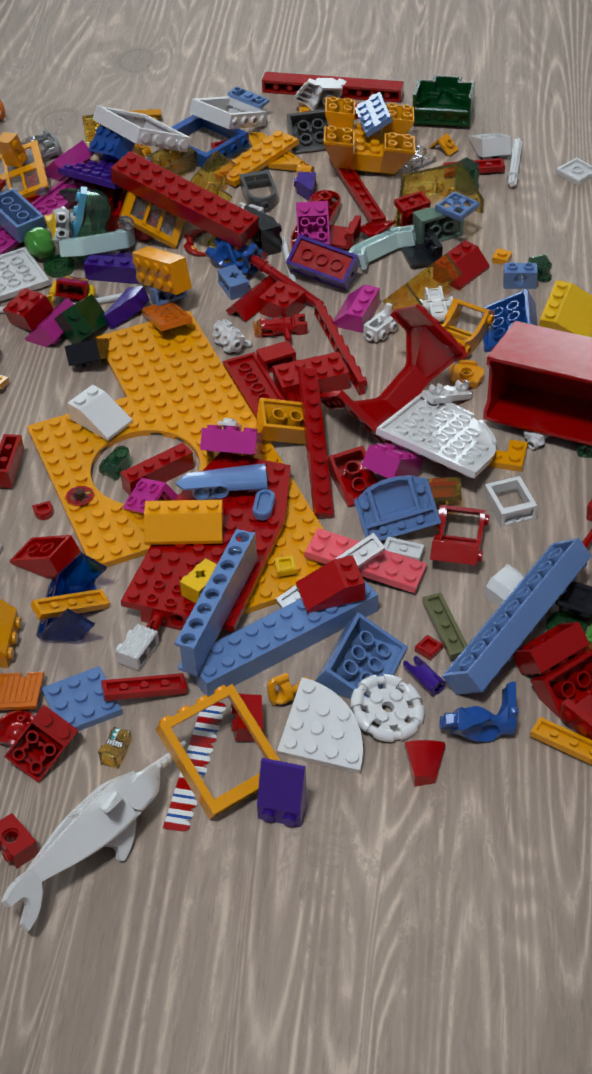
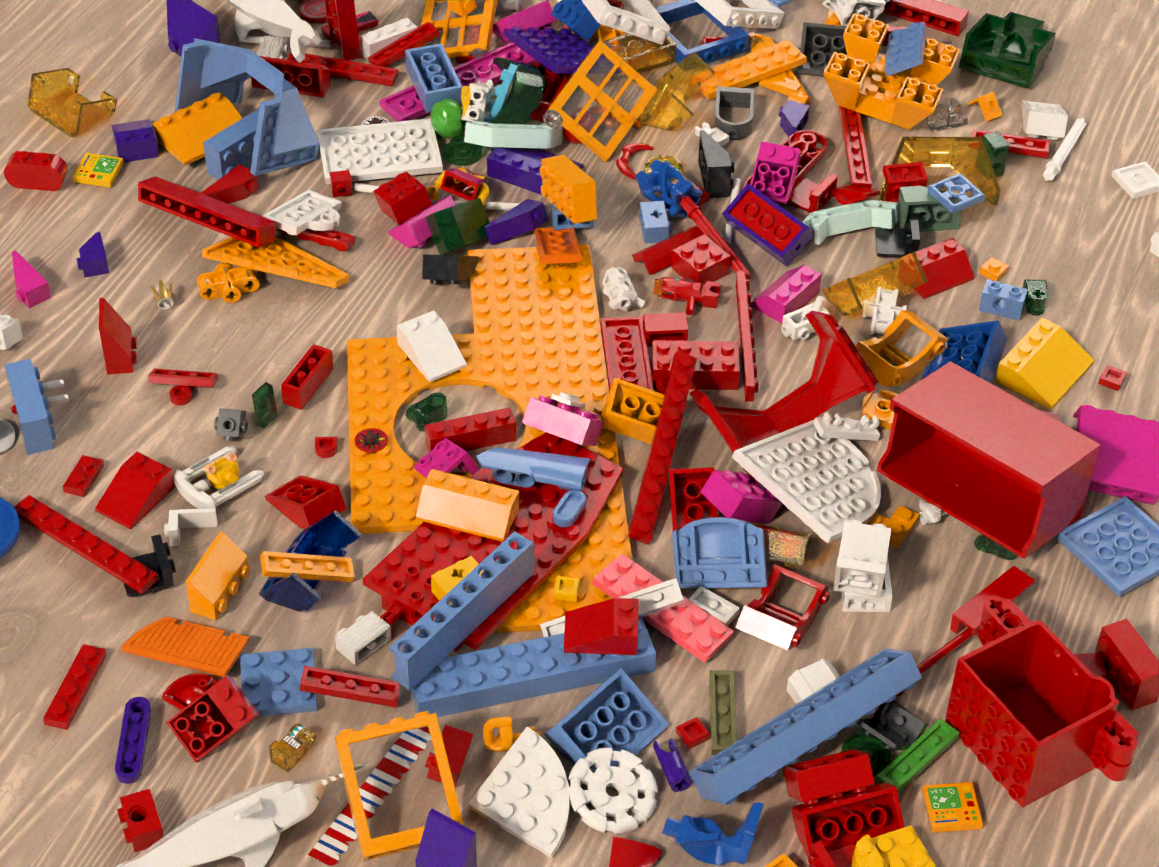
camera: 15 degrees right, 0 degrees up
(185, 199) = (630, 107): red brick -> none
(507, 482) = (862, 558): none -> white bracket

